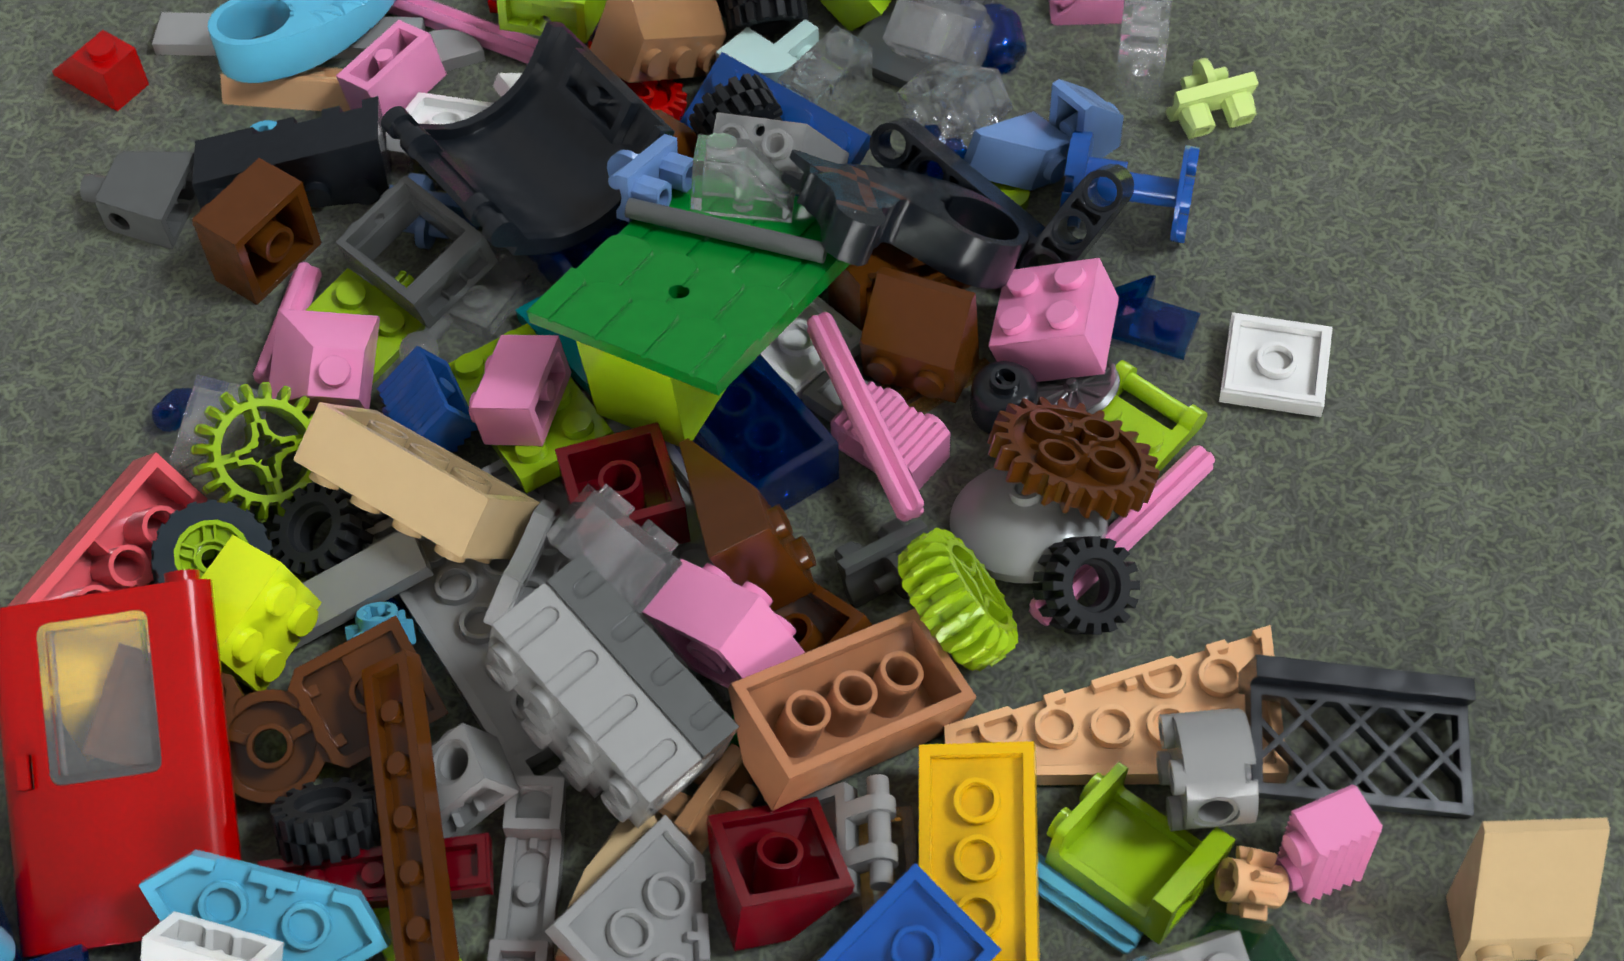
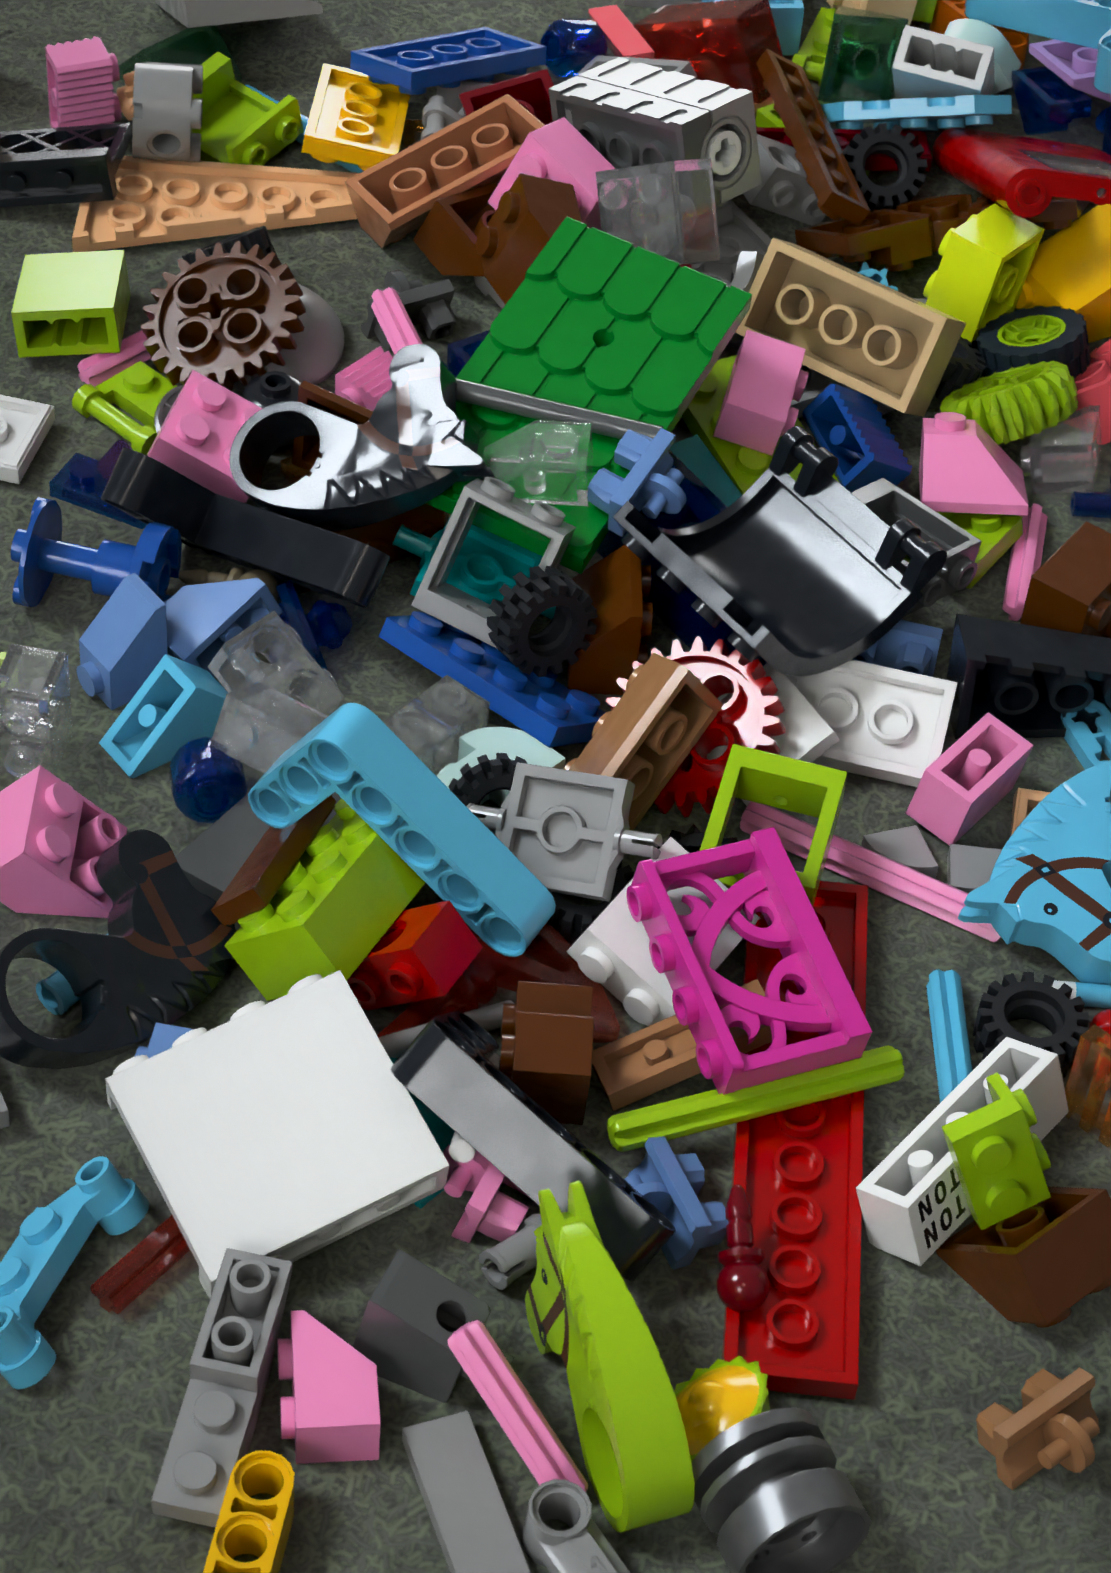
camera: 175 degrees right, 10 degrees down
(957, 599) = (350, 236): lime gear -> none
(1030, 79) = (165, 713): none -> medium azure slope
(1240, 510) = (71, 303): none -> lime brick

